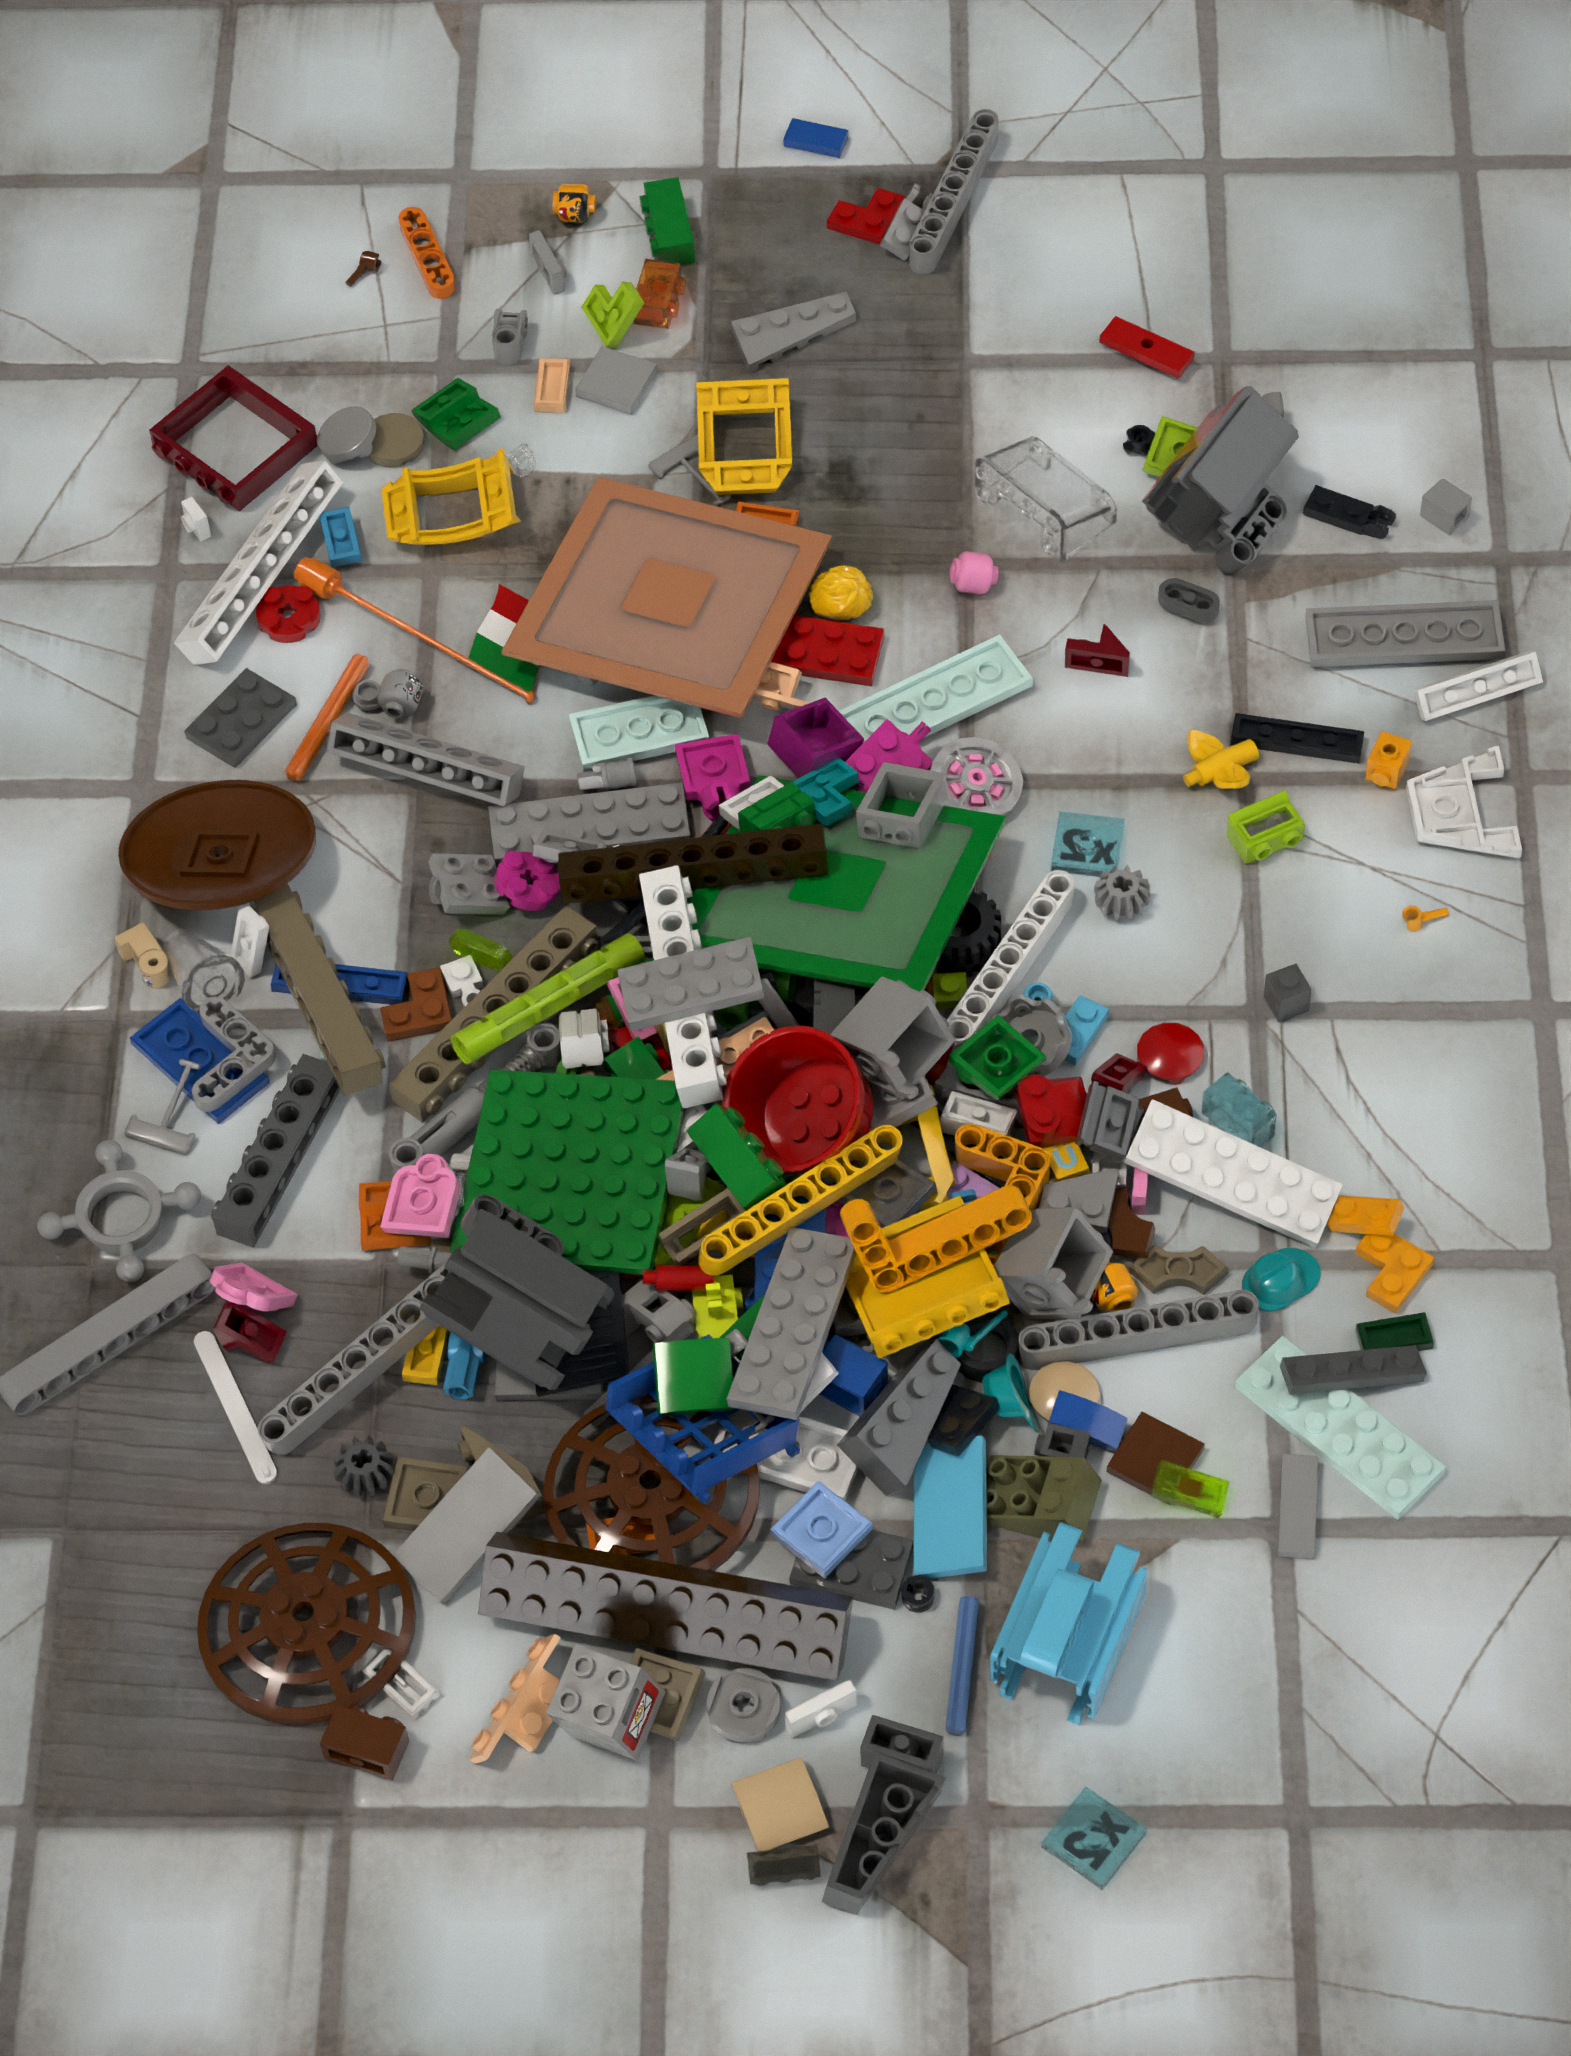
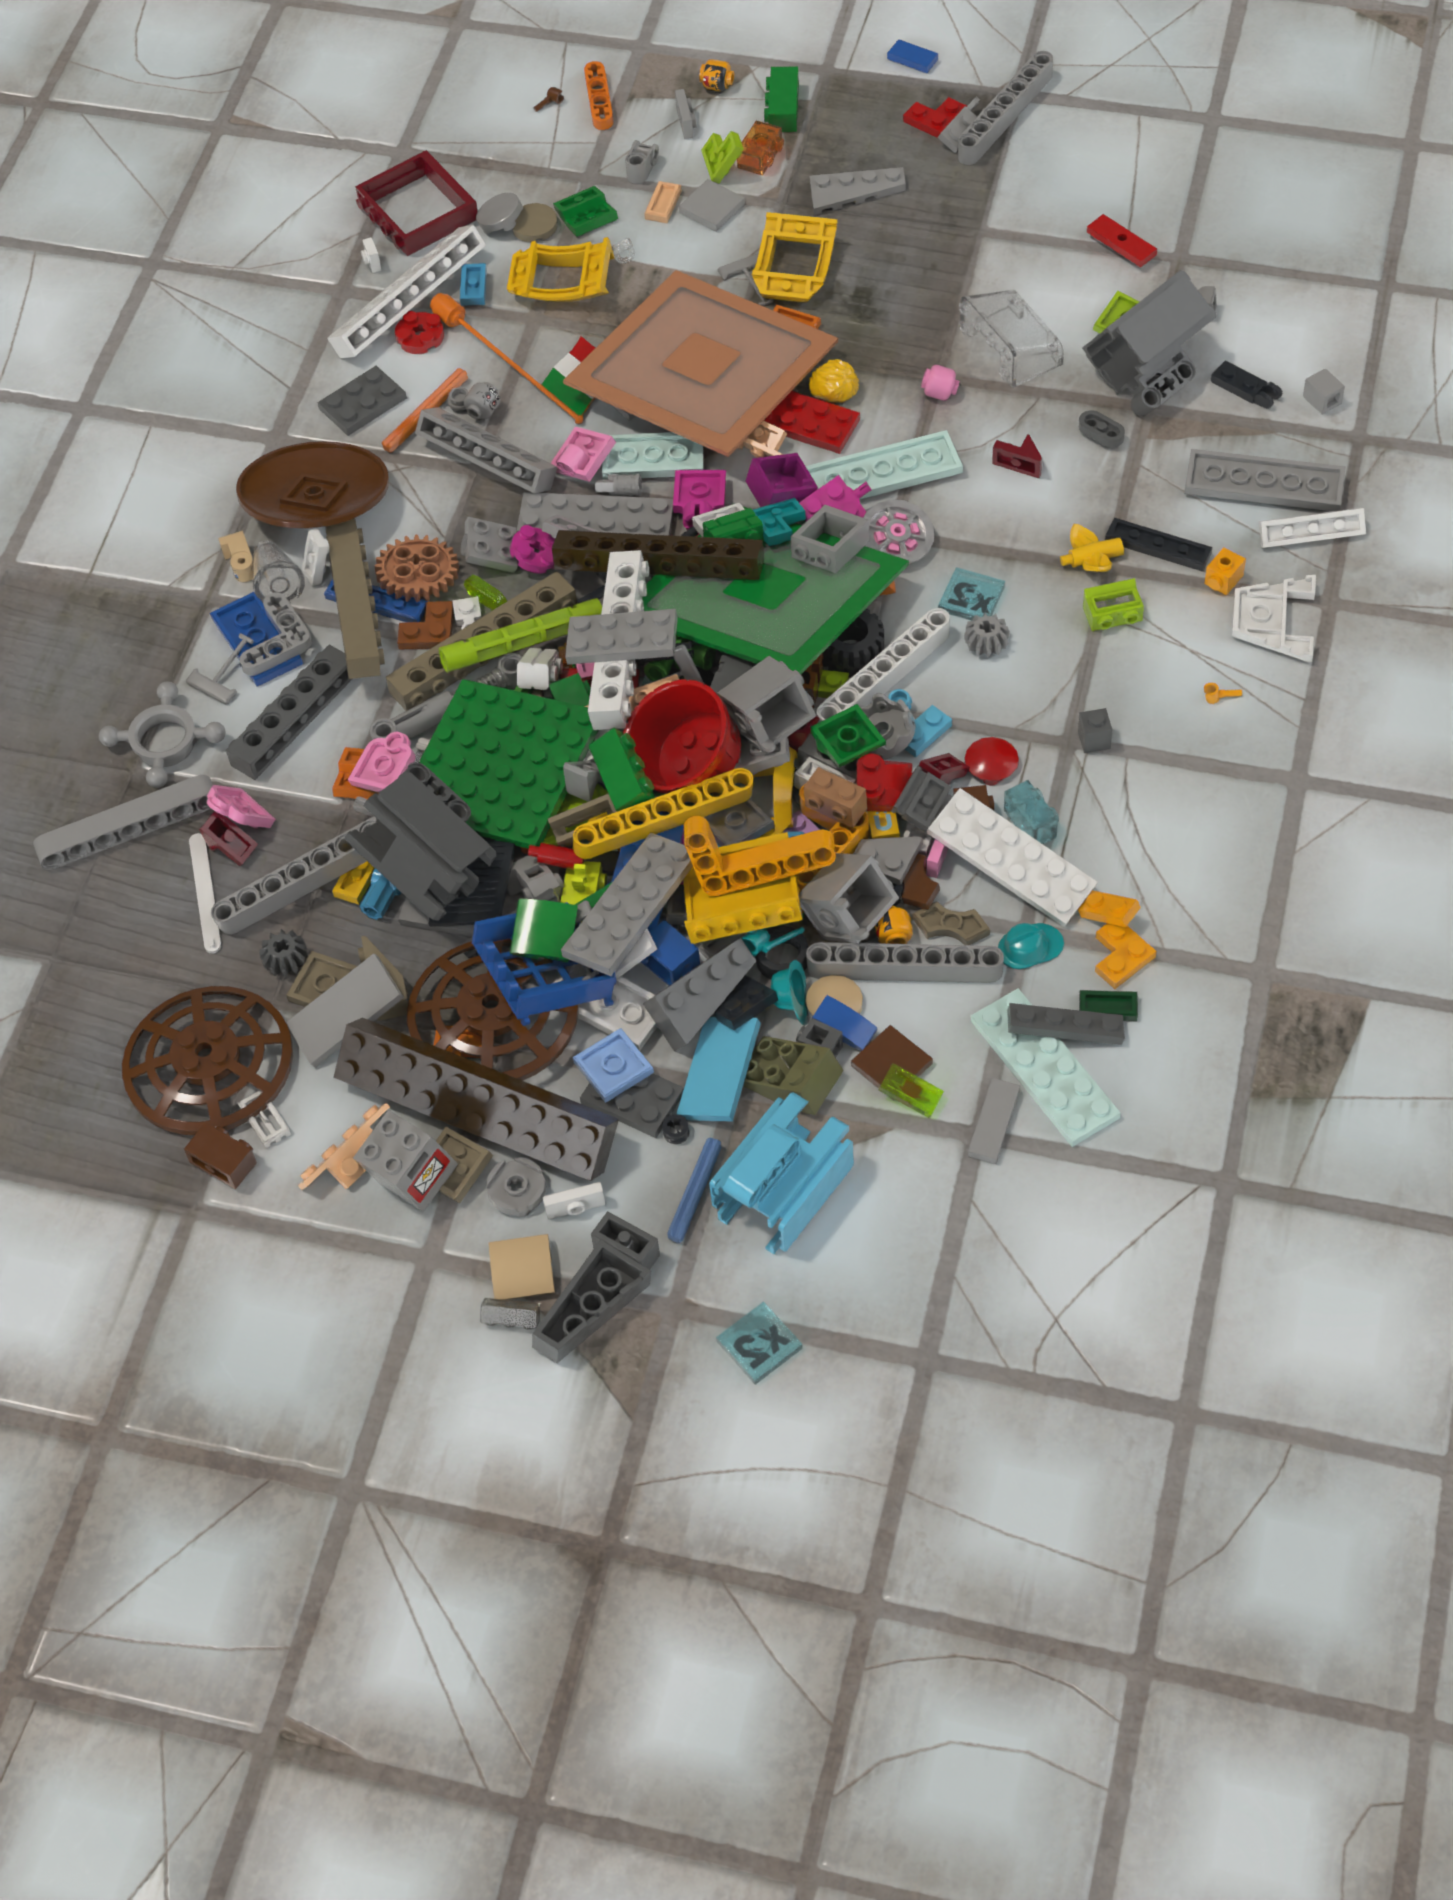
camera: 15 degrees right, 0 degrees up
(382, 931) = (416, 568): none -> nougat gear
(551, 743) = (583, 453): none -> bright pink plate
(1005, 1140) = (835, 797): none -> medium nougat brick
(1139, 439) = (1095, 306): black plate -> none

